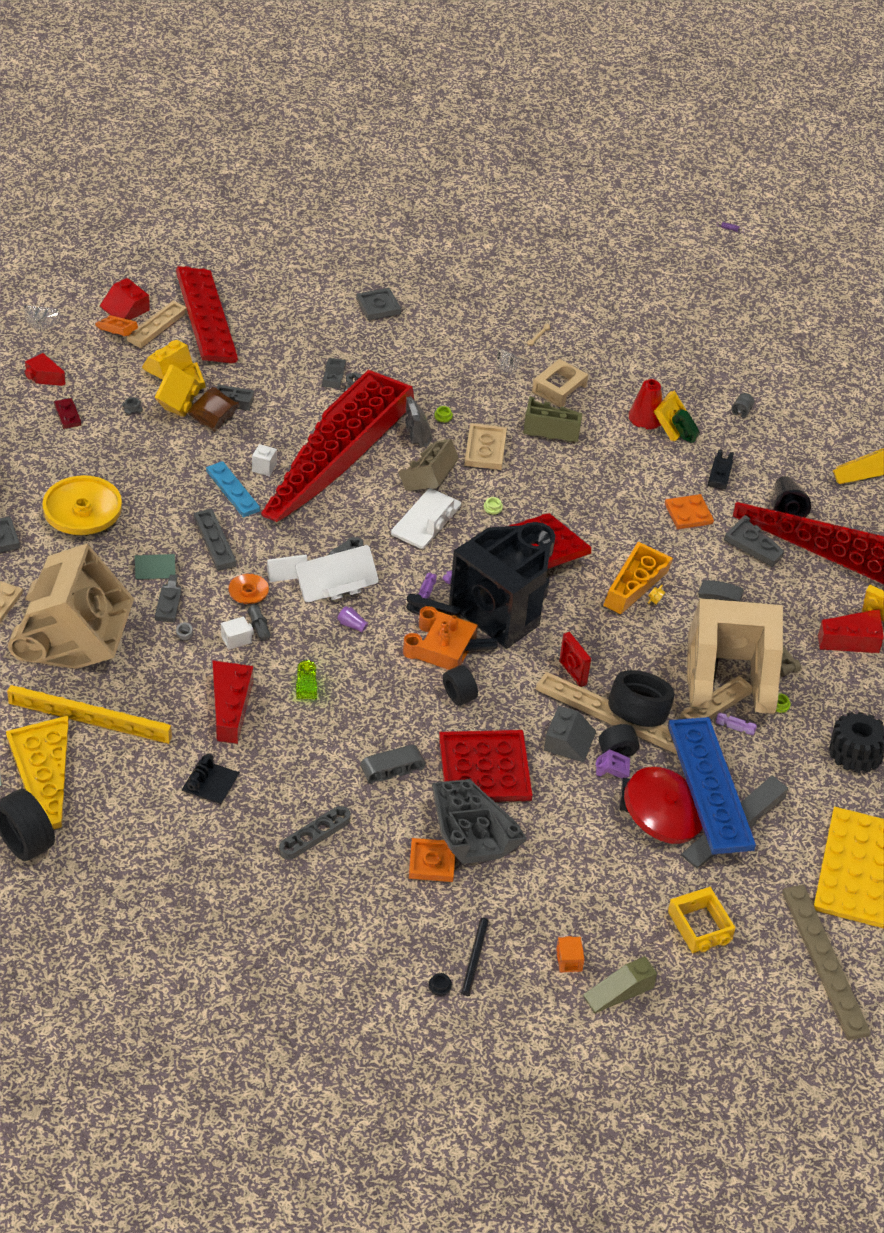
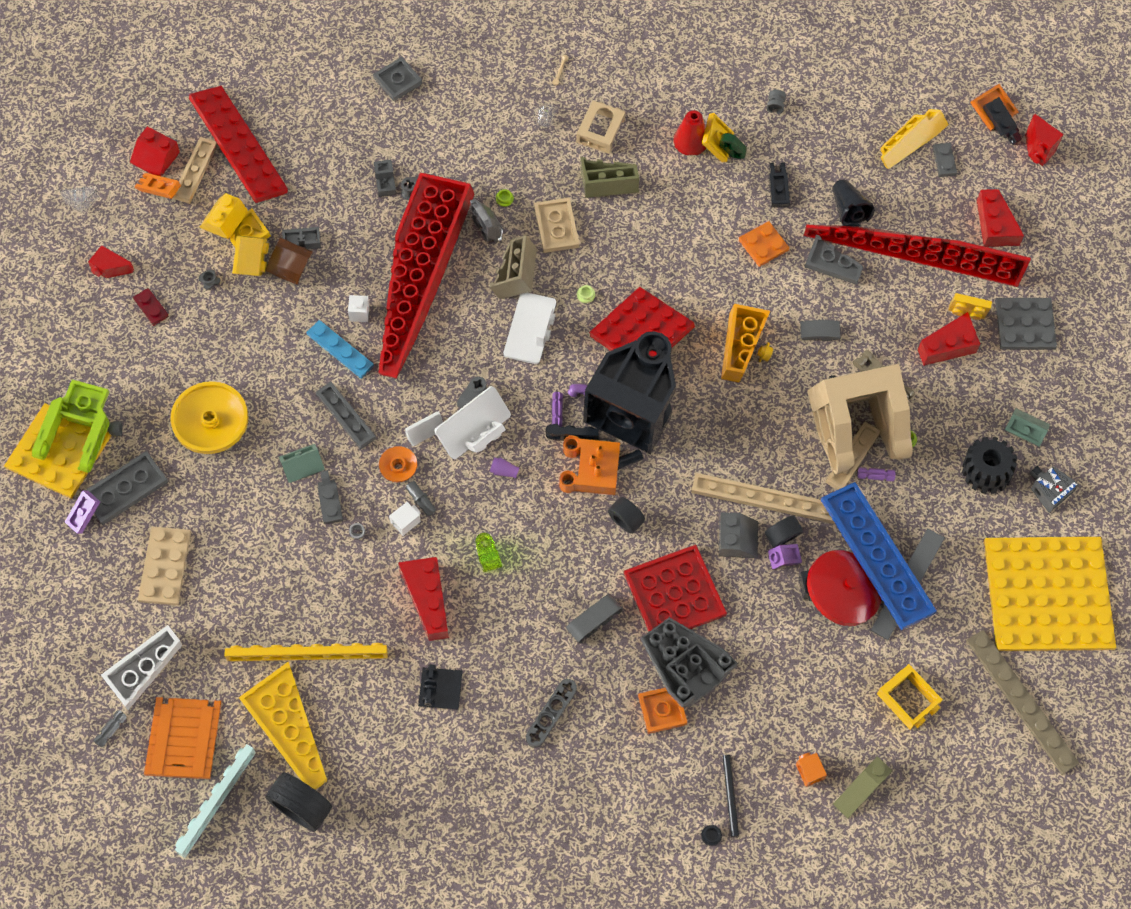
camera: 15 degrees left, 20 degrees up
(73, 612) = (267, 551): tan brick -> none
(575, 659) = (718, 454): red plate -> none
(641, 698) = (792, 464): black tyre -> none

